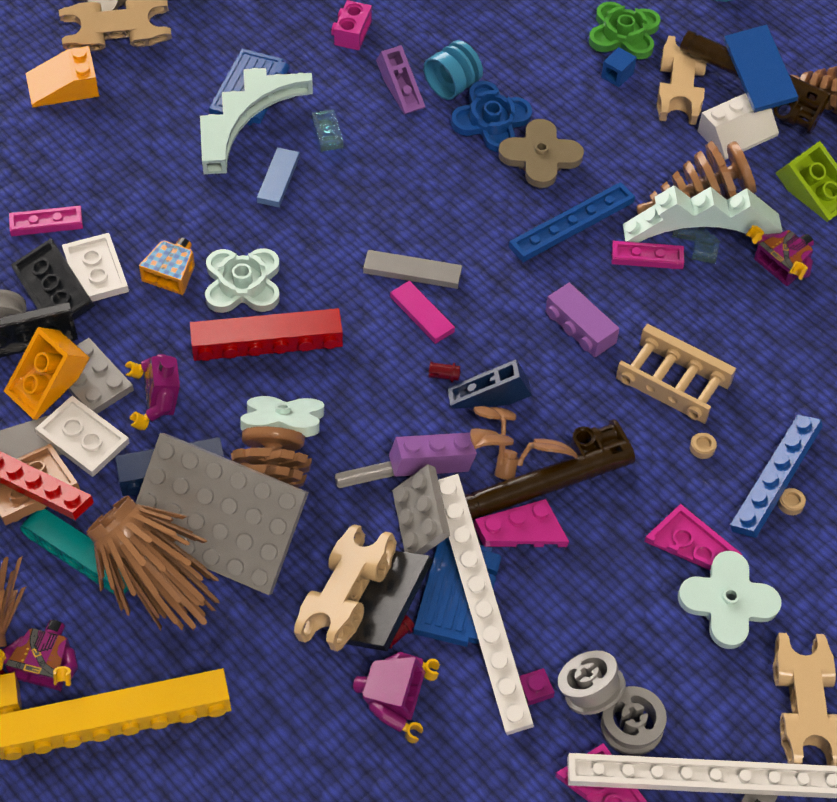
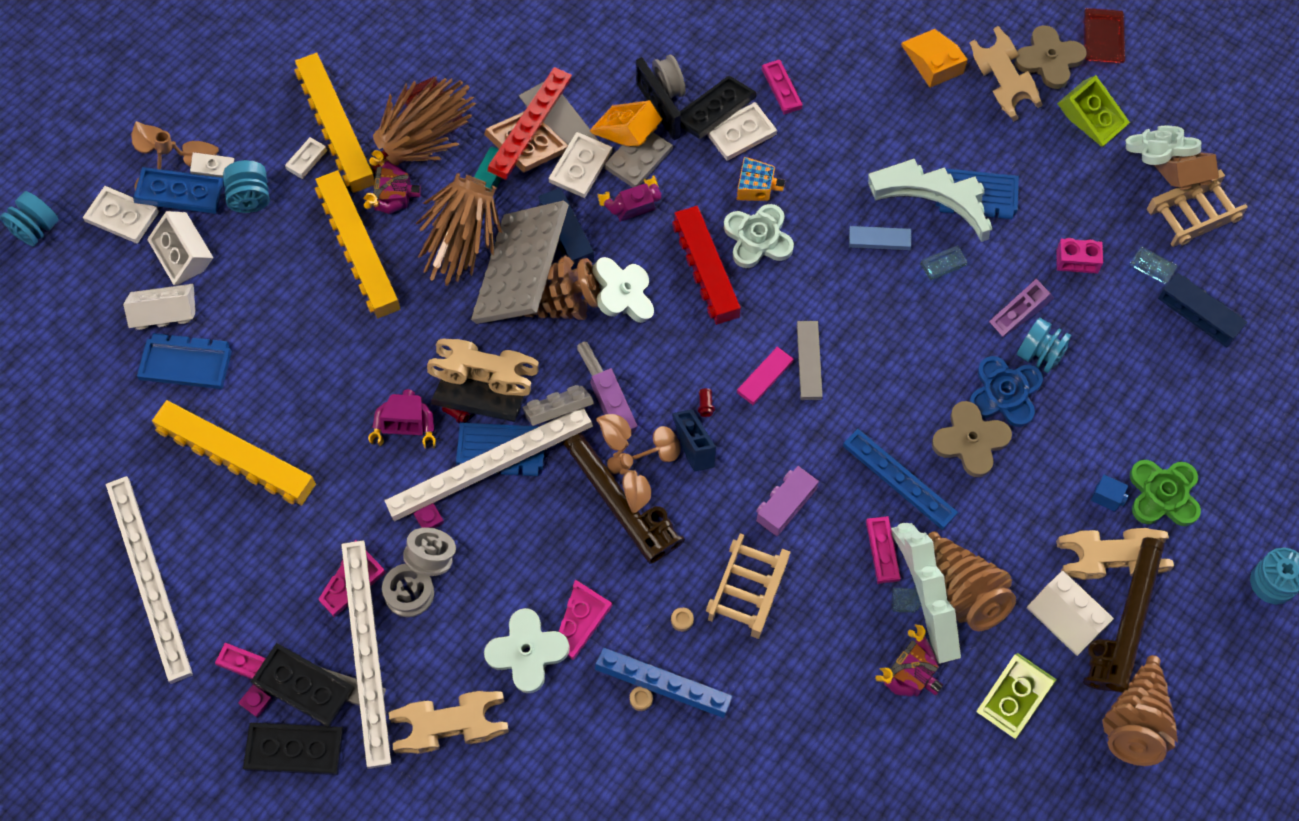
camera: 80 degrees right, 10 degrees up
(521, 525) = (567, 486): dark pink wing -> none
(760, 68) = (1129, 613): blue tile -> none

